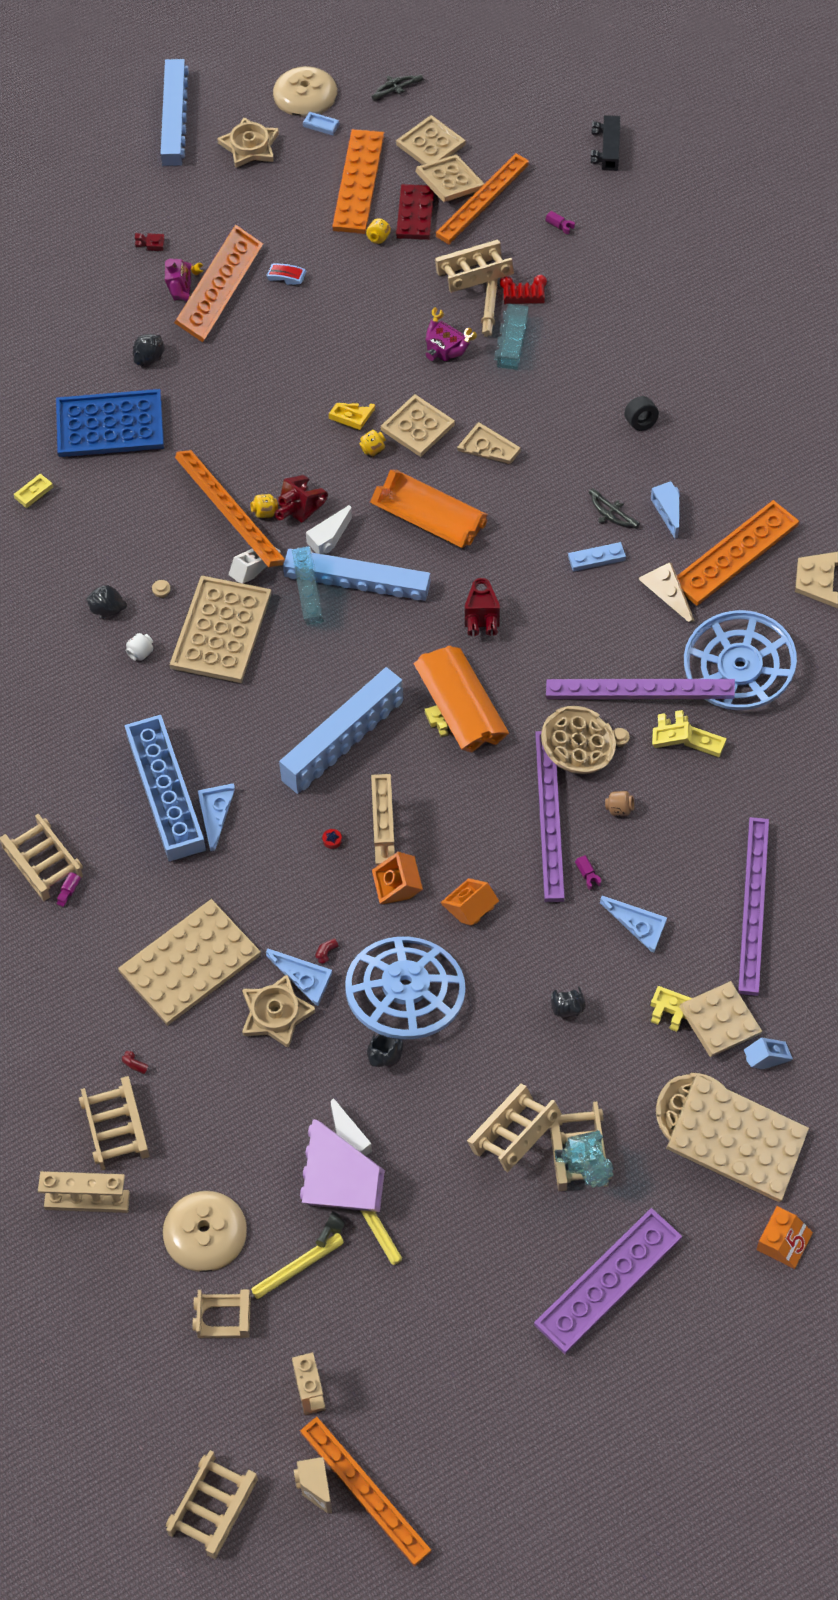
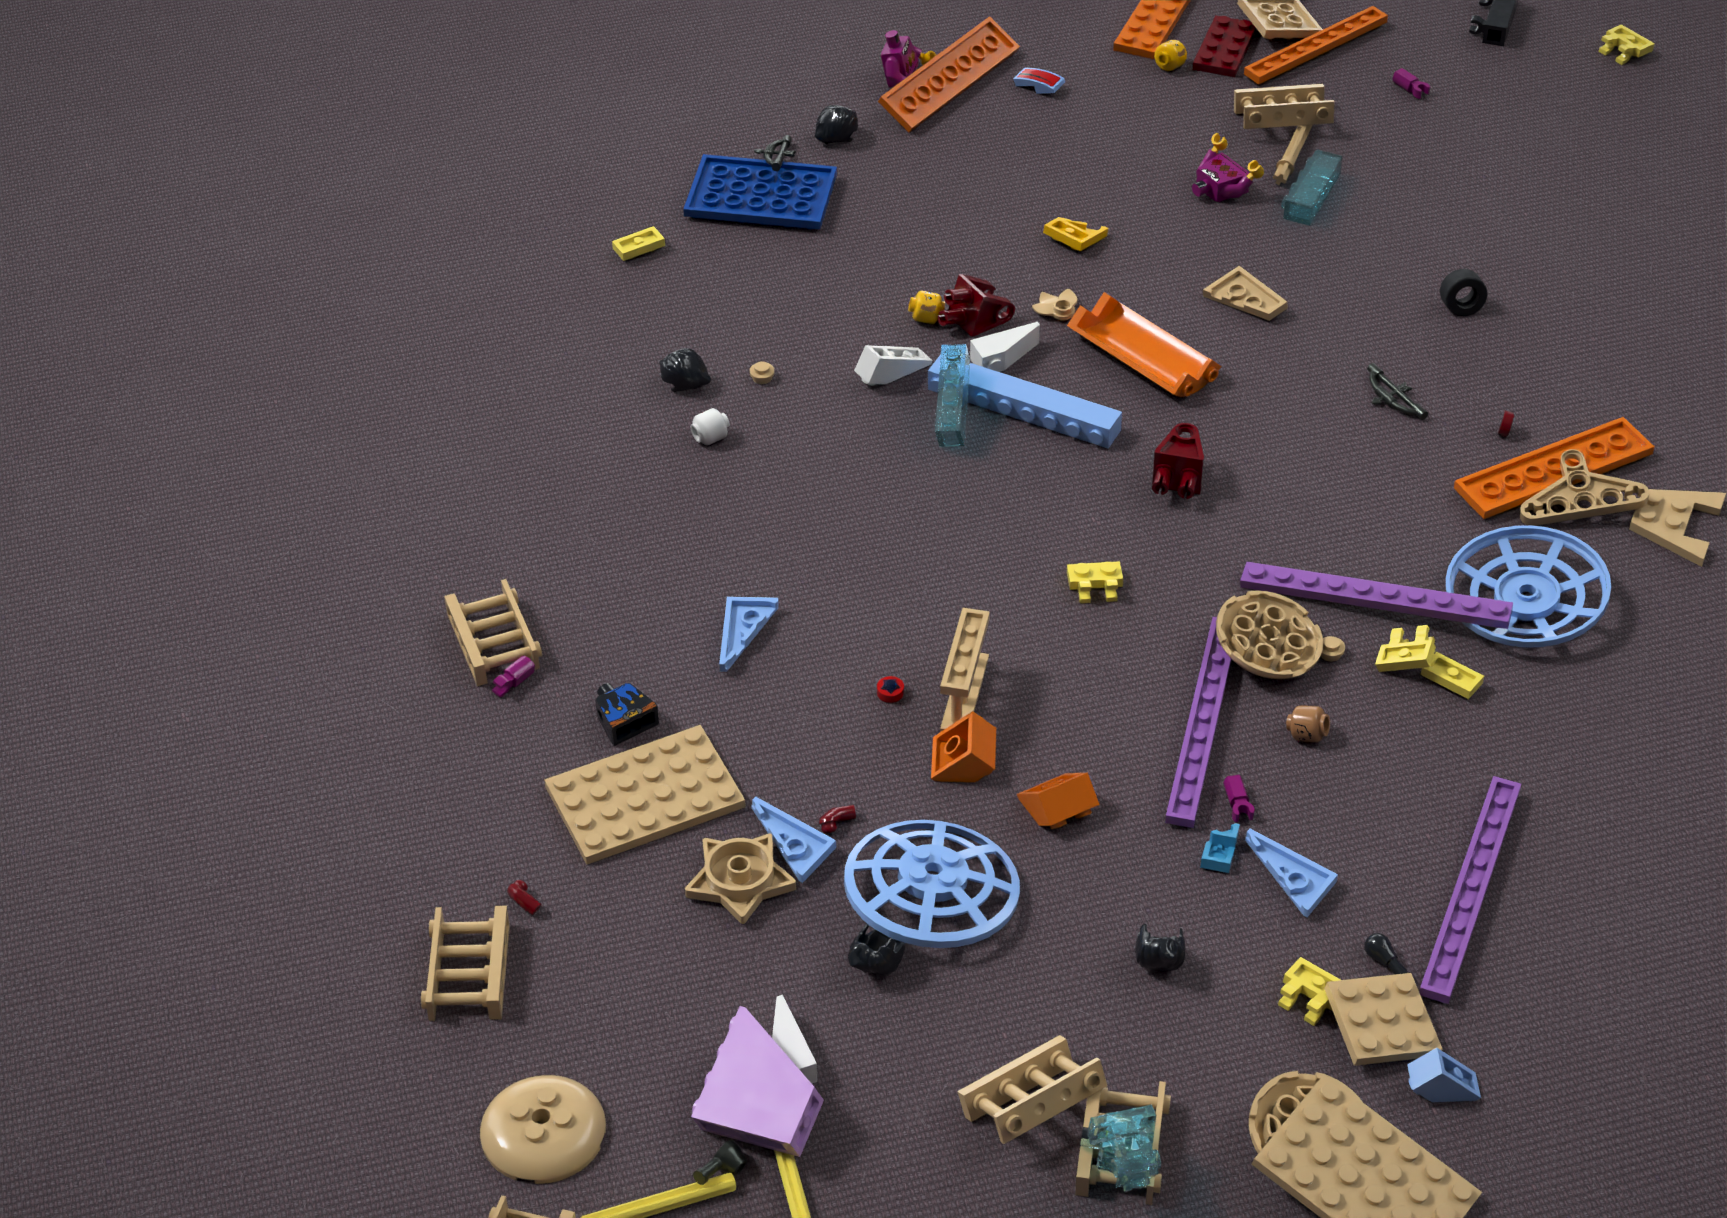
camera: 15 degrees right, 15 degrees down
(84, 1192) = (384, 1048): tan fence -> none
(105, 385) = (770, 150): none -> pearl dark grey piece
(152, 242) = (879, 25): dark red plate -> none
(155, 901) = (625, 712): none -> black torso
(165, 788) = (684, 585): light blue brick -> none
(220, 629) = (823, 428): tan plate -> none
(230, 508) = (881, 301): orange plate -> none
(341, 730) = (943, 563): light blue brick -> none
(353, 482) = (1058, 307): none -> tan plate
(372, 443) = (1091, 265): yellow head -> none
(417, 425) = (1157, 258): tan plate -> none
(461, 698) = (1120, 559): orange cylinder -> none
(523, 294) = (1350, 149): red gear -> none
(586, 915) = (1220, 849): none -> dark azure slope
(596, 556) = (1358, 440): light blue plate -> none
(666, 500) = (1471, 394): light blue slope -> none
(666, 585) = (1446, 486): wing -> none
(695, 522) = (1506, 423): none -> dark red tile
(707, 967) = (1381, 950): none -> black piece
(708, 150) = (1628, 42): none -> light yellow plate
(749, 576) = (1594, 490): none -> tan beam

